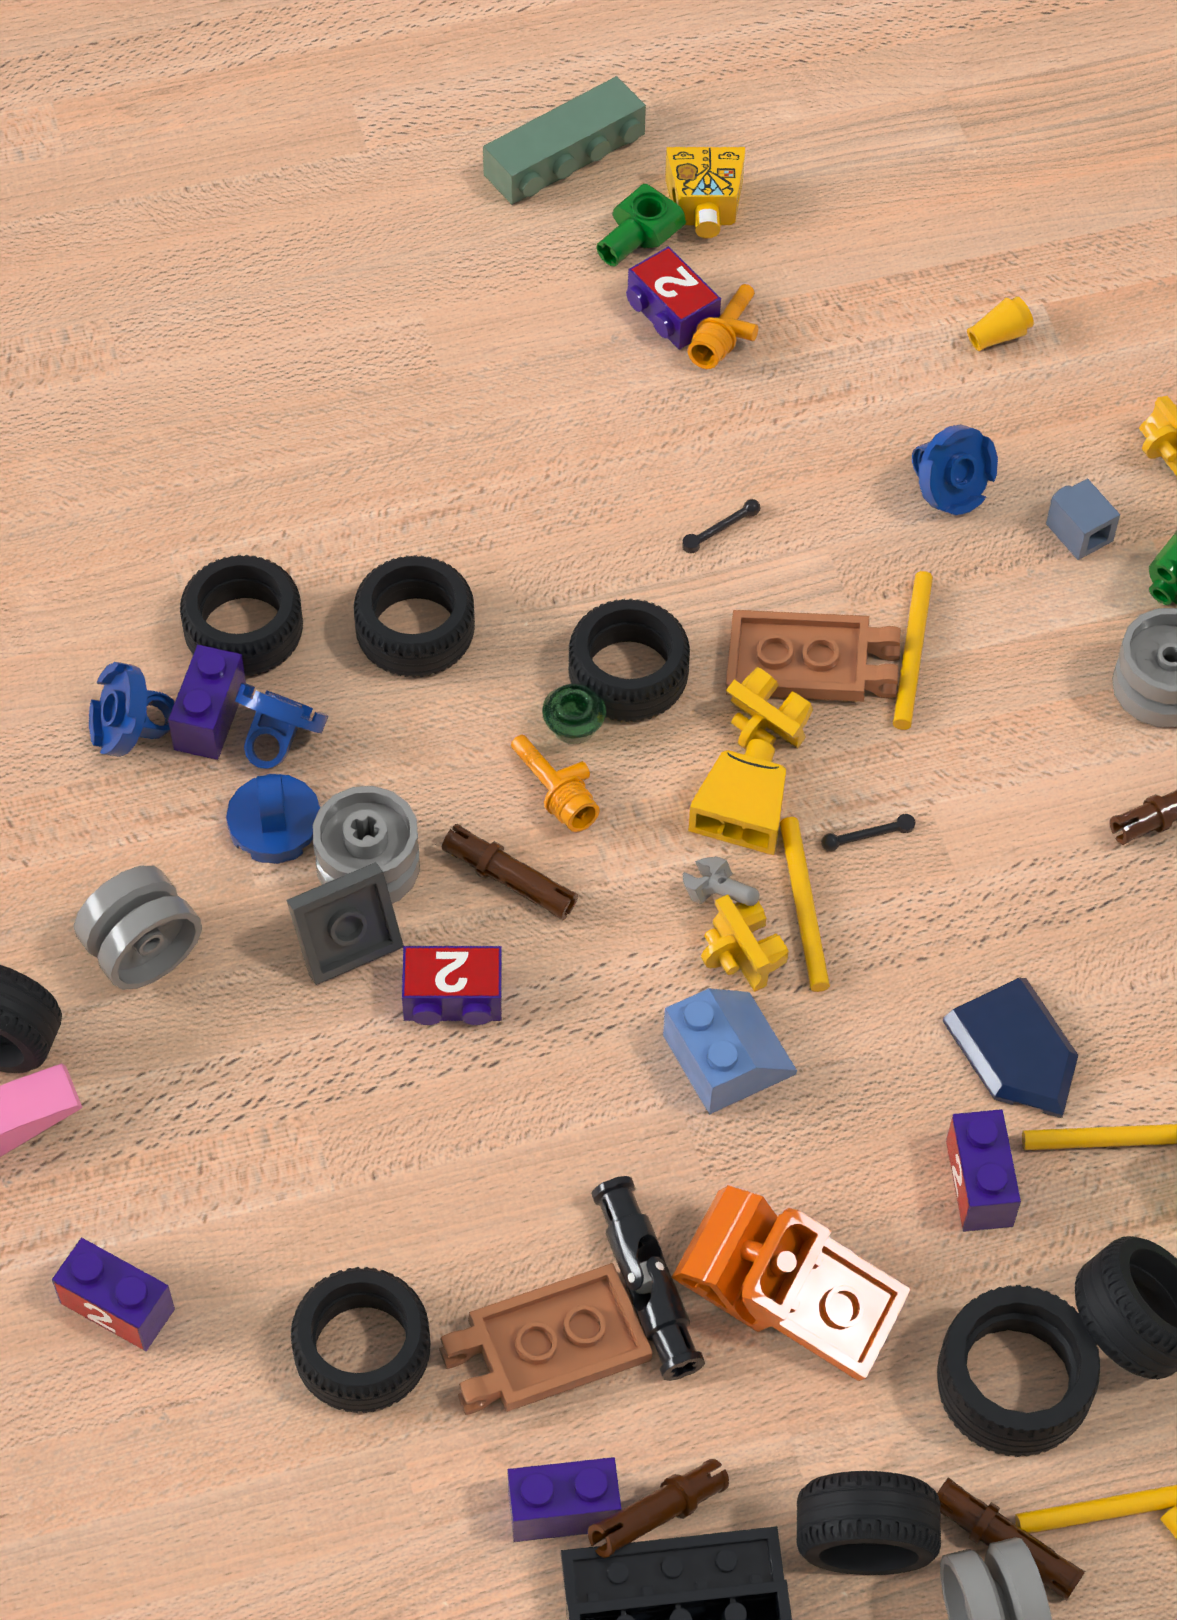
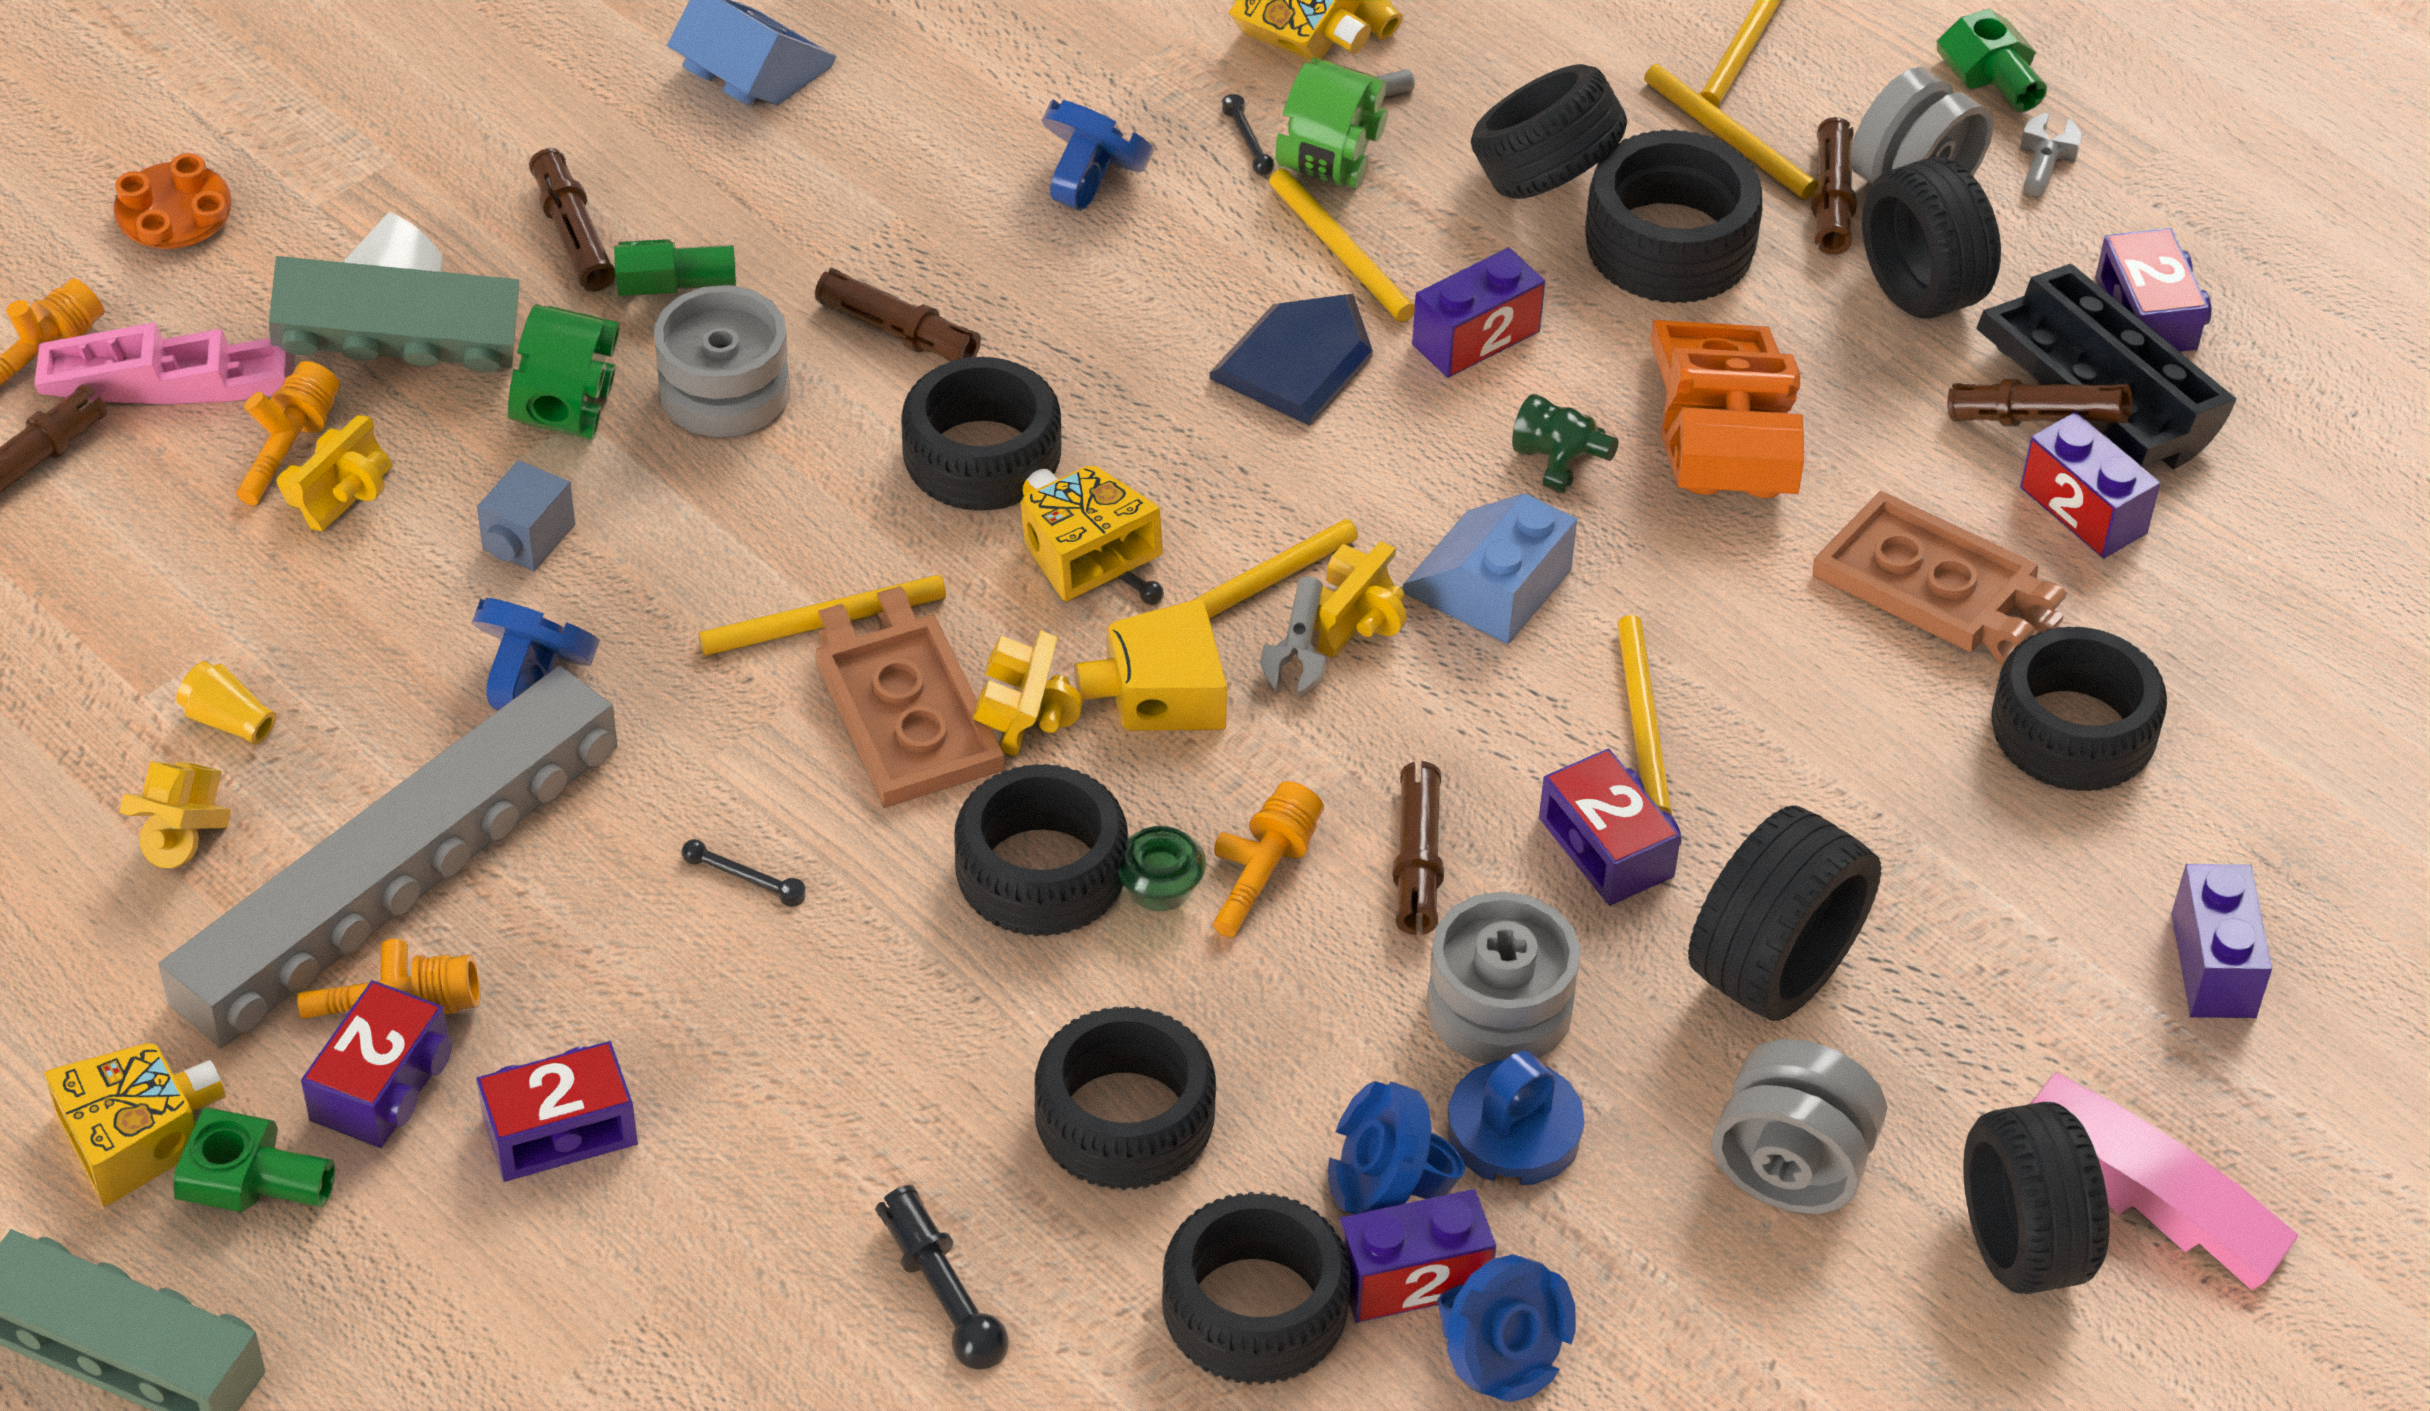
camera: 120 degrees left, 10 degrees down
(285, 997) = (1784, 912): none -> black tyre
(314, 495) = (978, 1337): none -> black pin
(345, 923) = (1616, 926): dark grey plate -> none
(542, 1073) = (1643, 711): none -> yellow bar
(588, 362) = (557, 1110): none -> brick
(648, 1278) = (1806, 524): black piece -> none
(825, 1161) = (1561, 435): none -> dark green piece
(830, 362) = (388, 857): none -> light grey brick
(898, 811) = (1087, 528): none -> yellow torso
(914, 264) = (179, 803): none -> yellow hips
(1030, 754) = (973, 392): none -> black tyre

